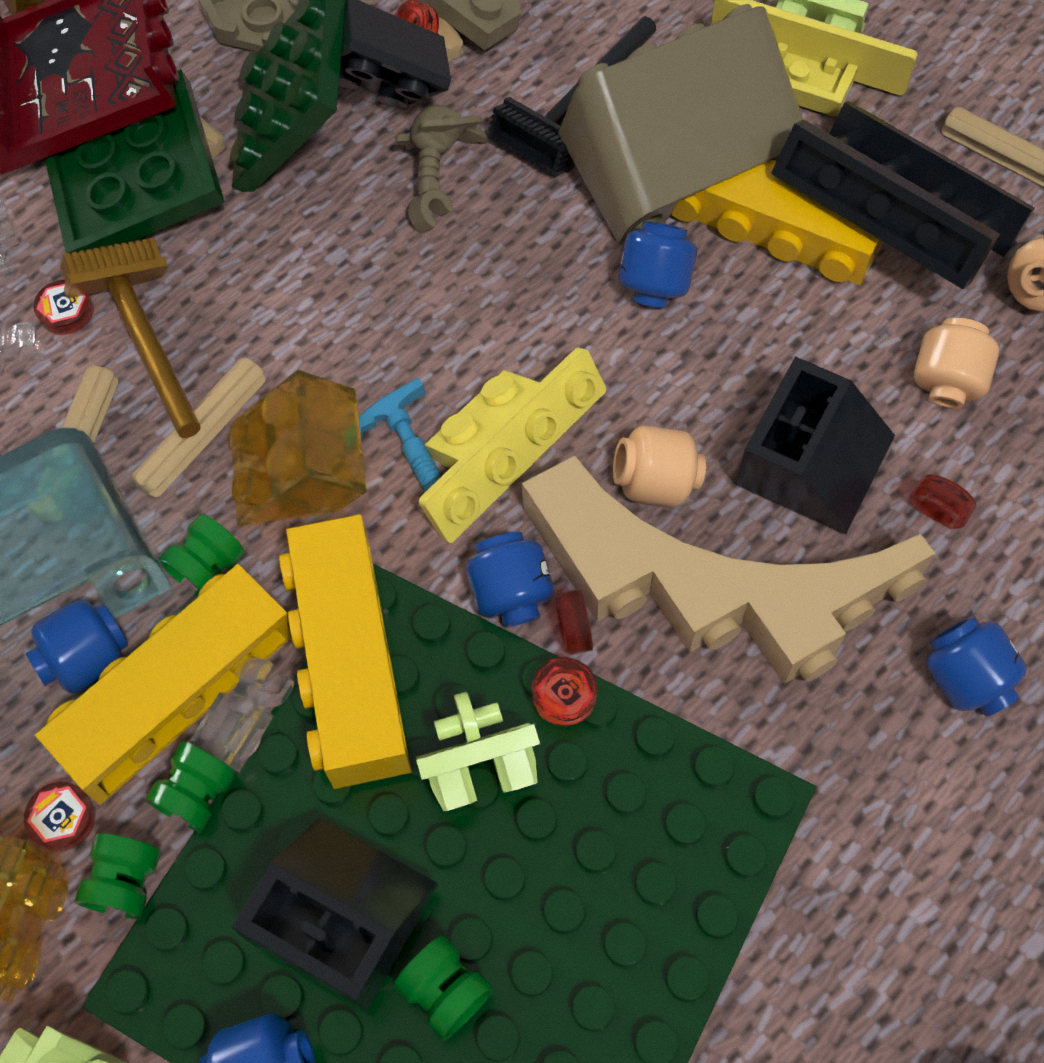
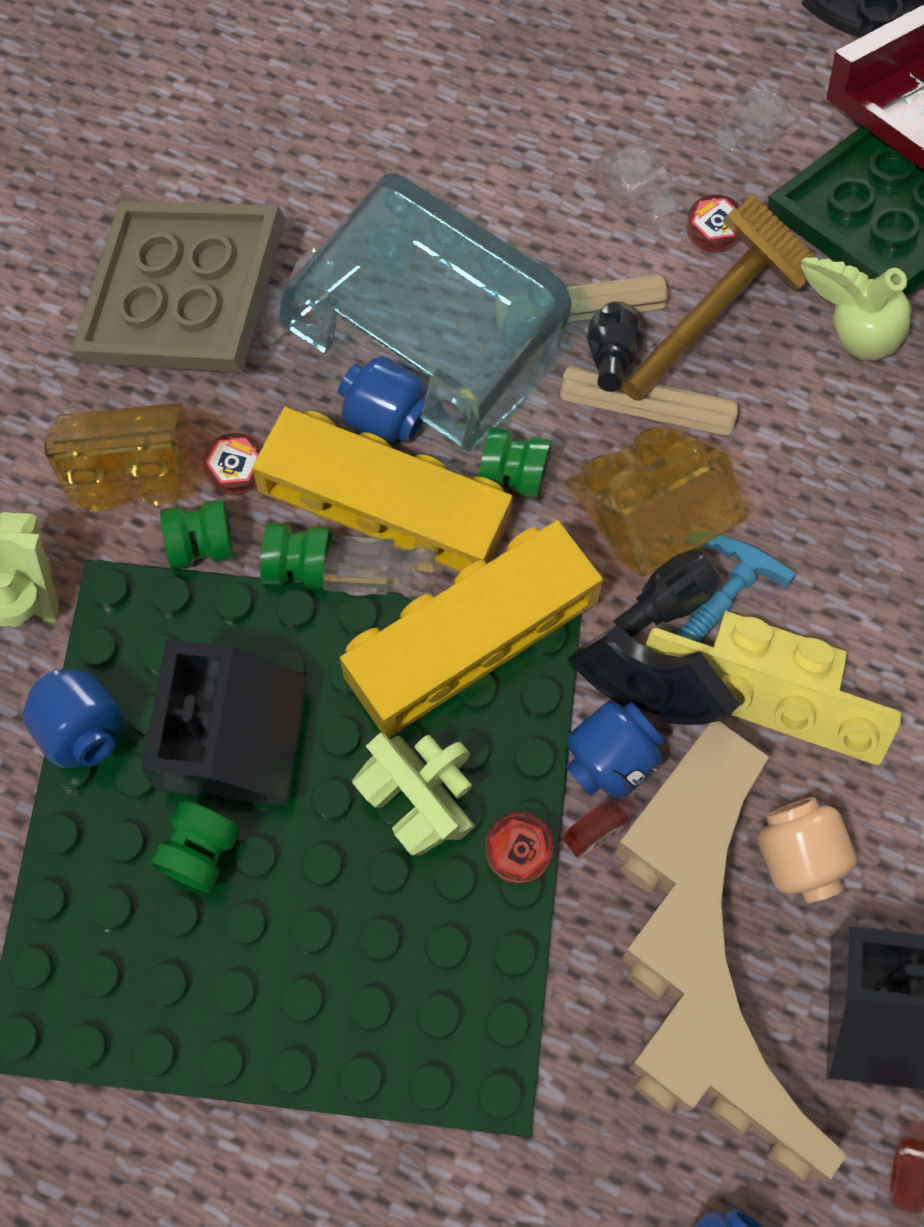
camera: 65 degrees right, 5 degrees up
(133, 427) = (614, 342): none -> black piece
(219, 222) = (869, 313): none -> yellowish green piece
(390, 477) = (672, 592): none -> black piece
(476, 508) = (675, 687): none -> black tile

